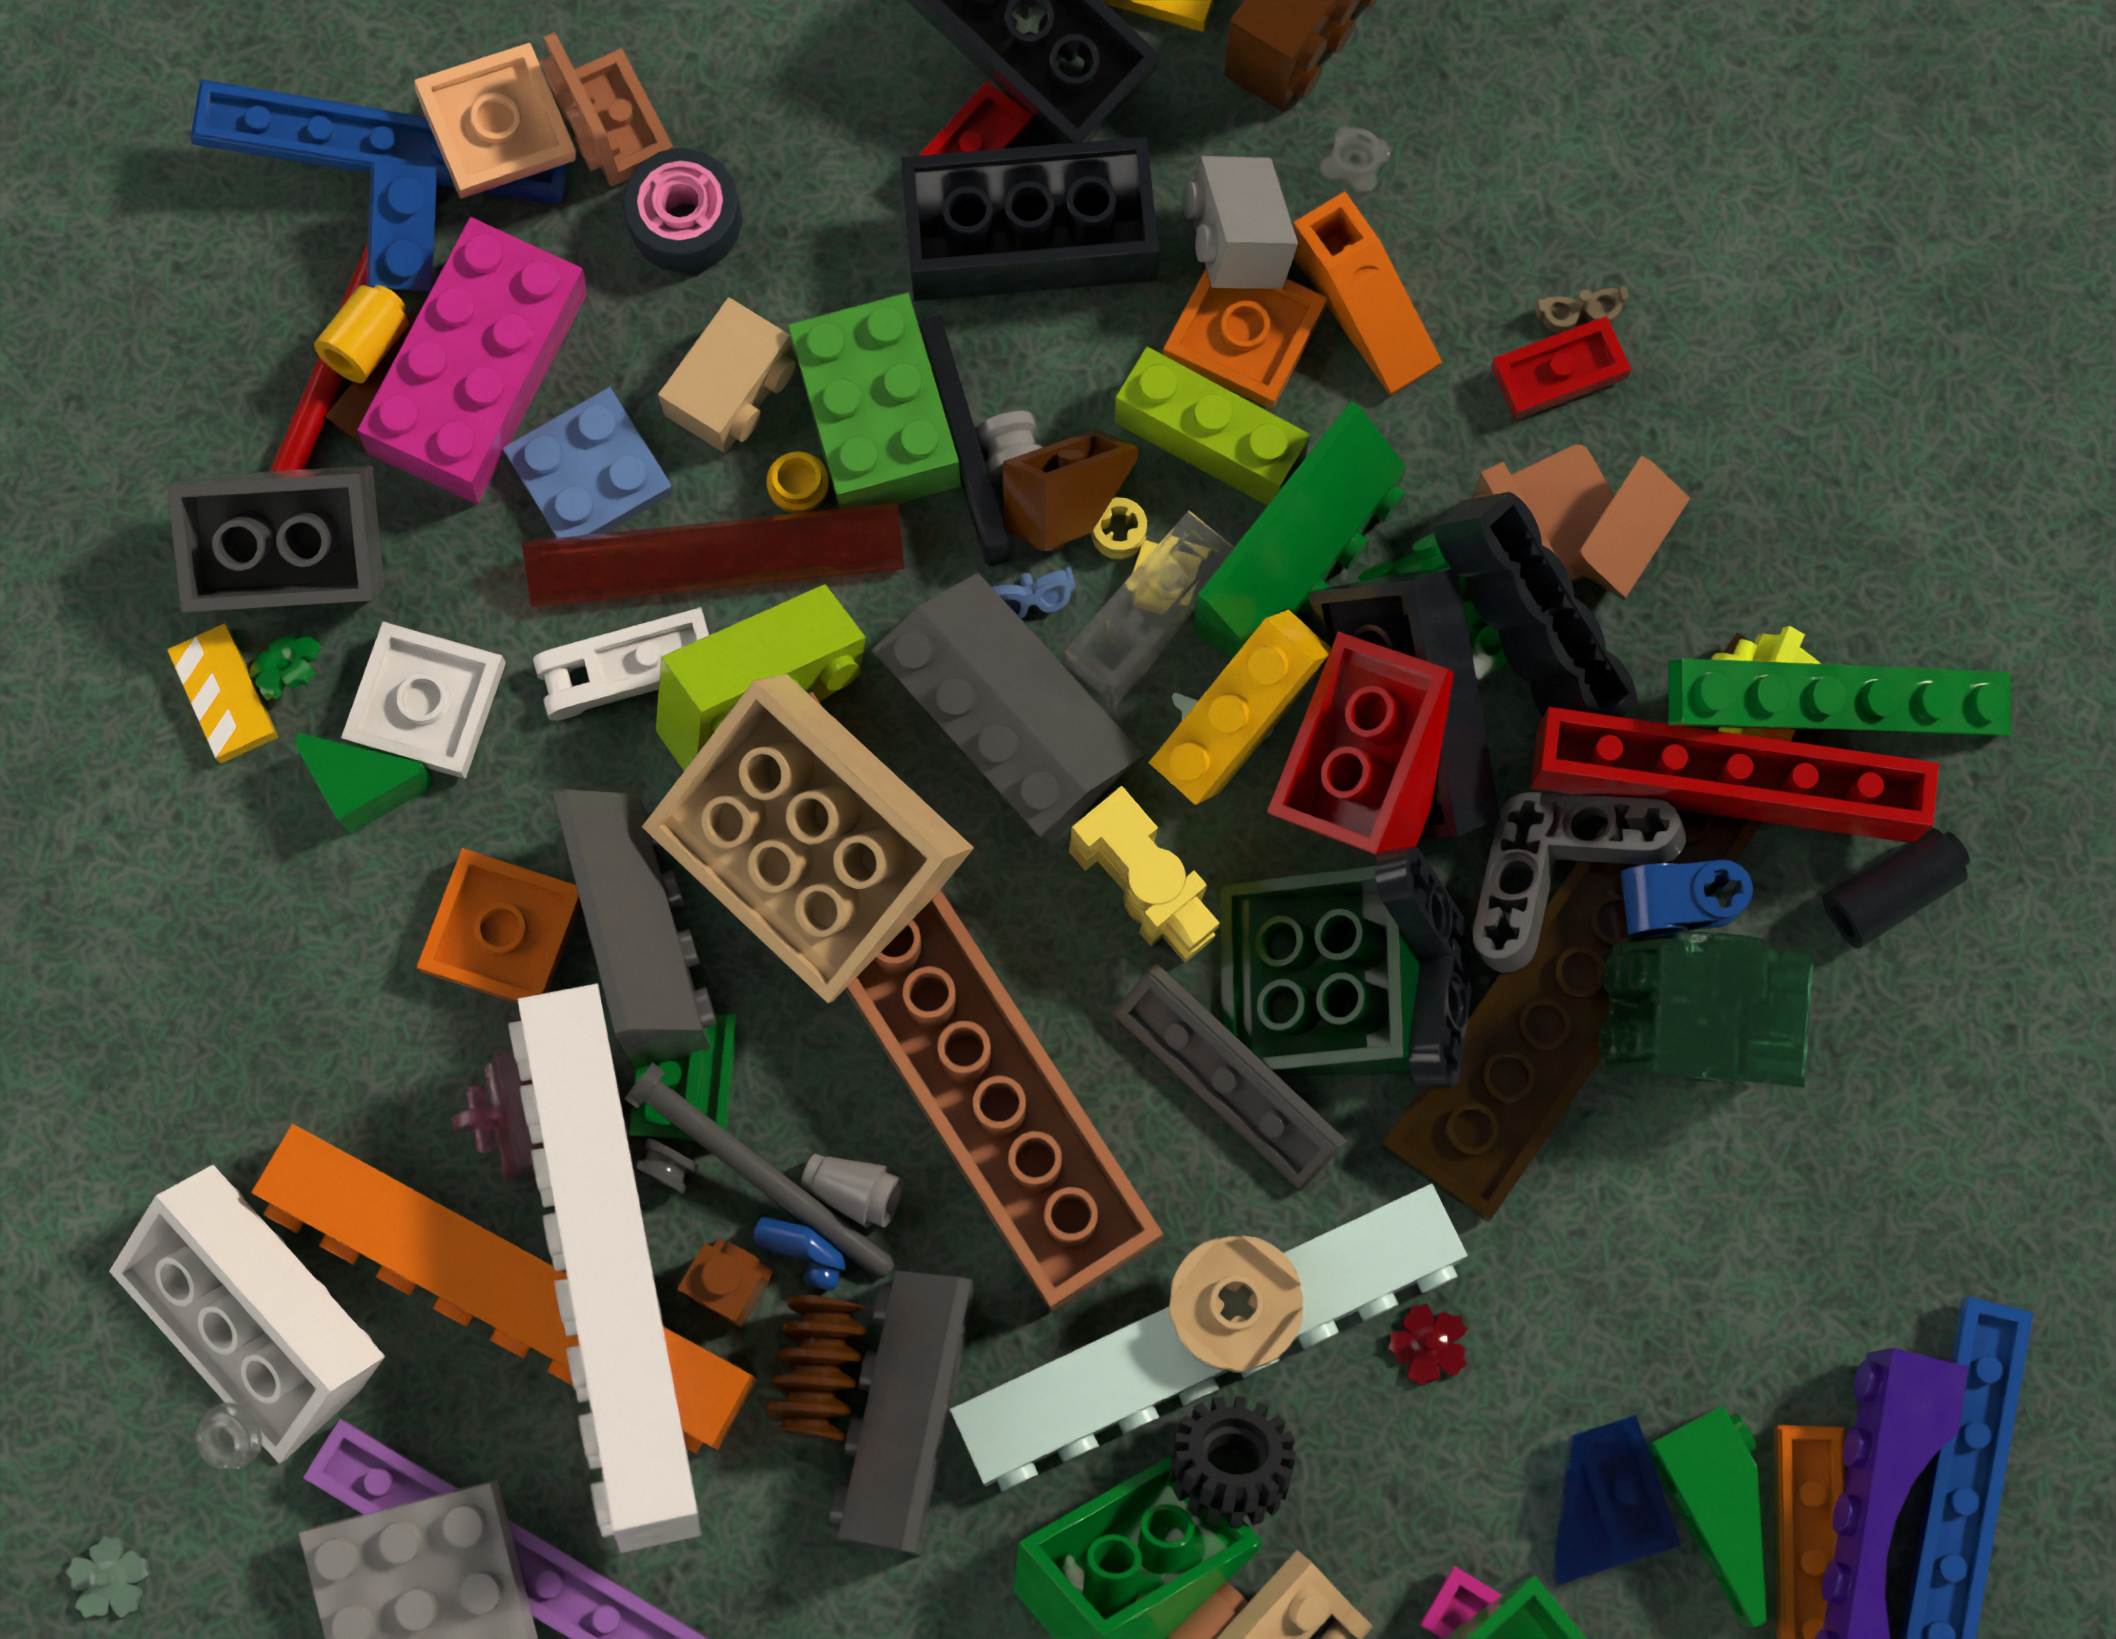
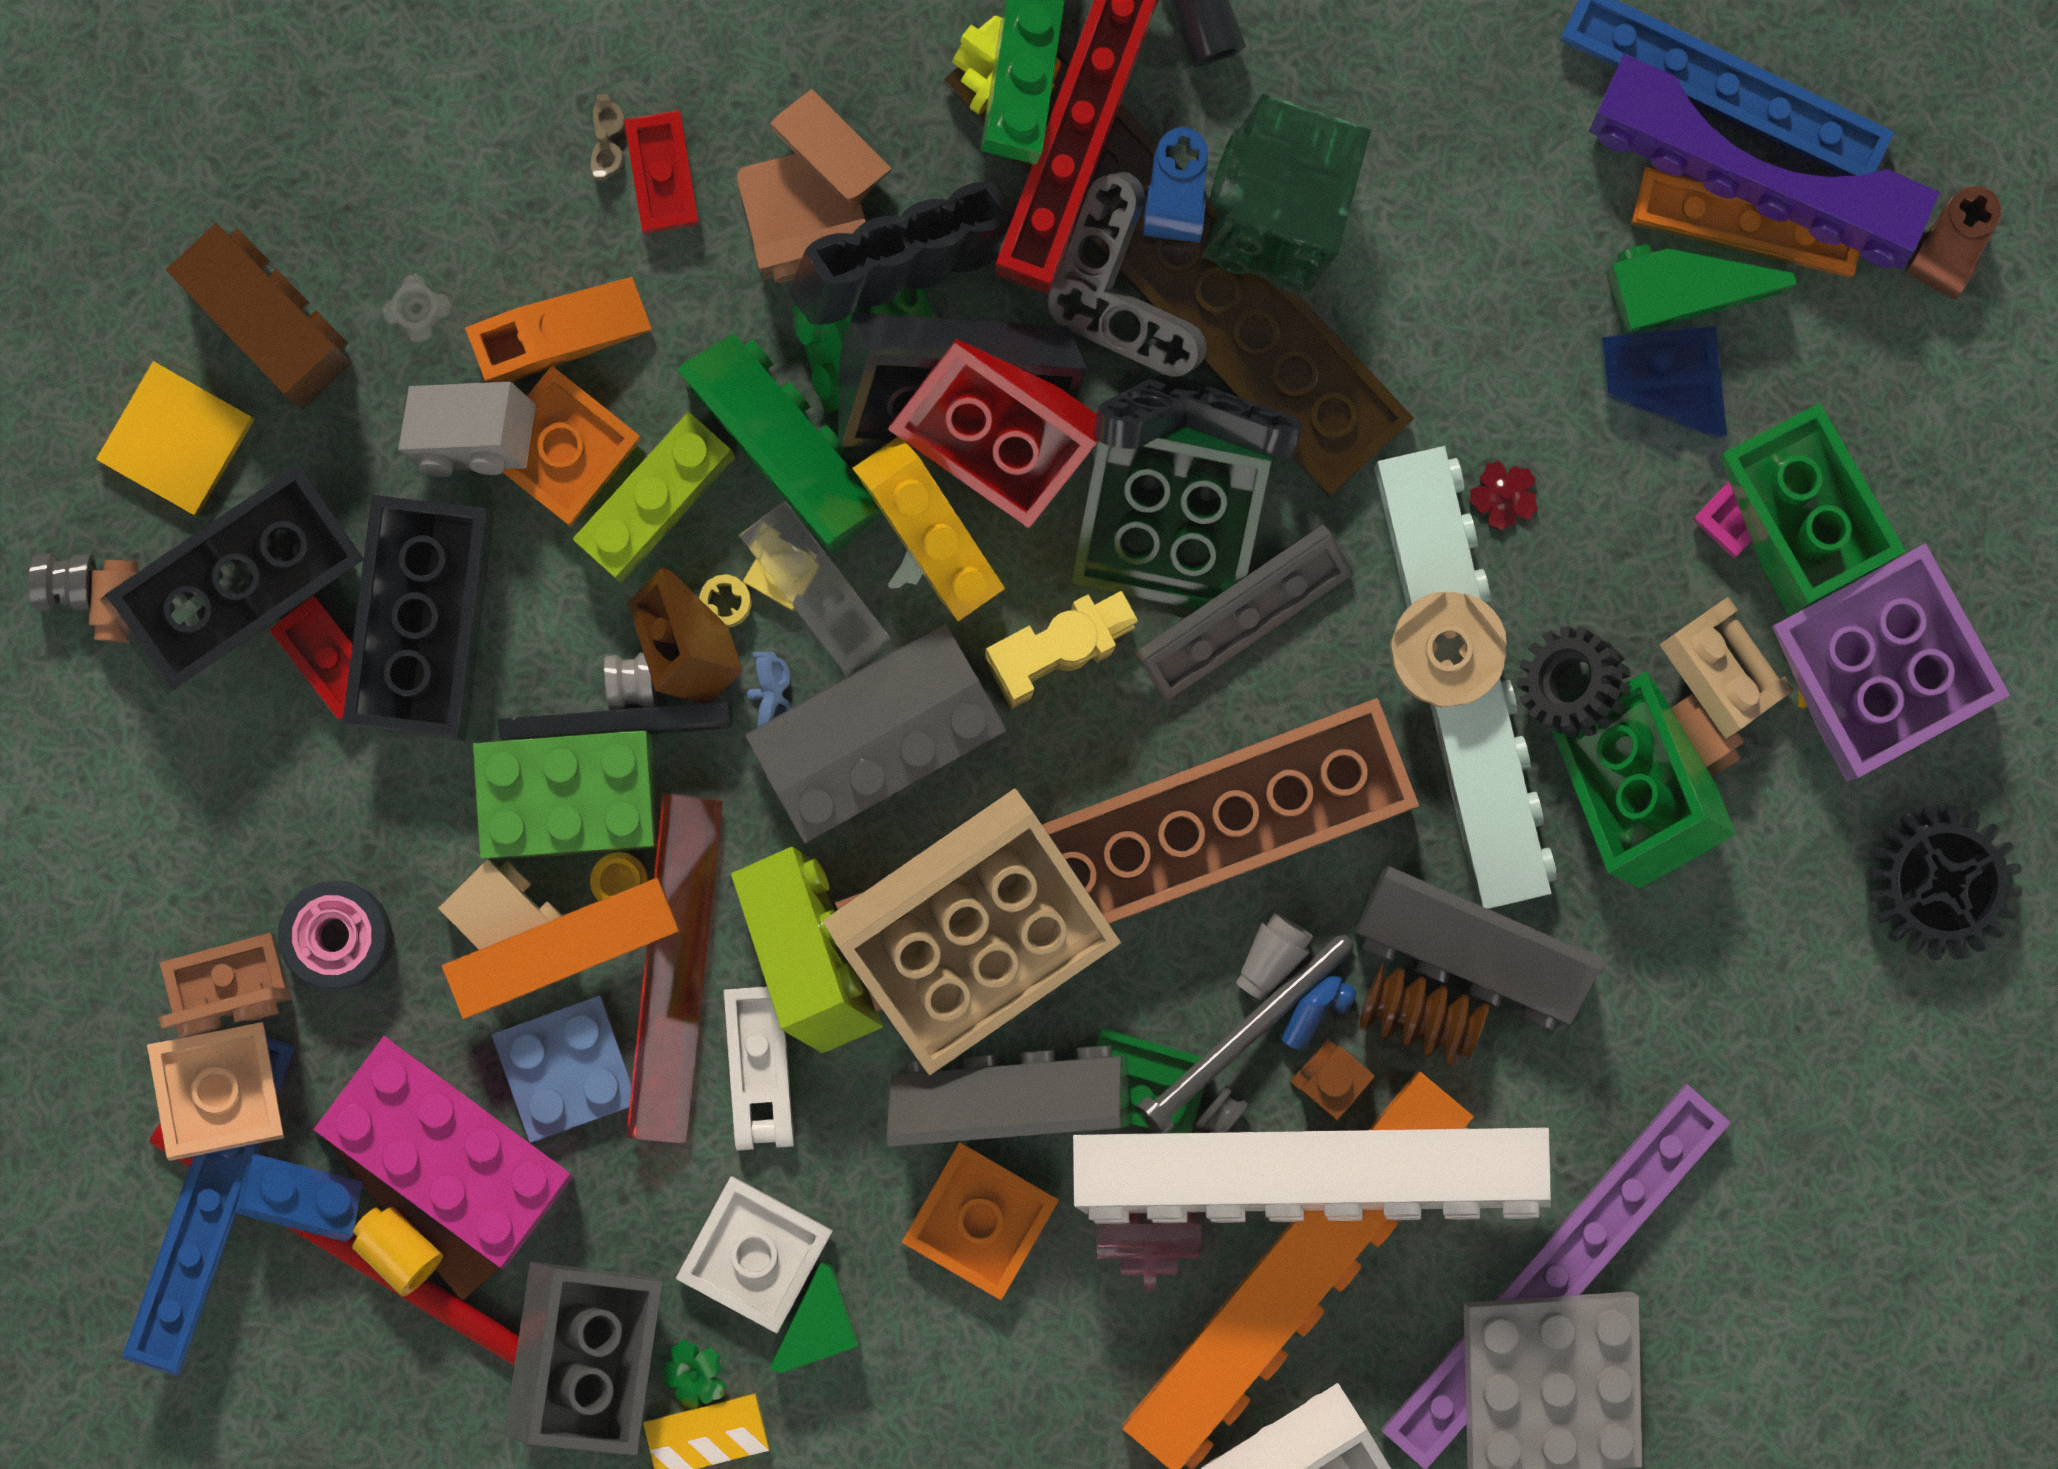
camera: 75 degrees left, 10 degrees up
(709, 424) = (560, 948): none -> orange tile

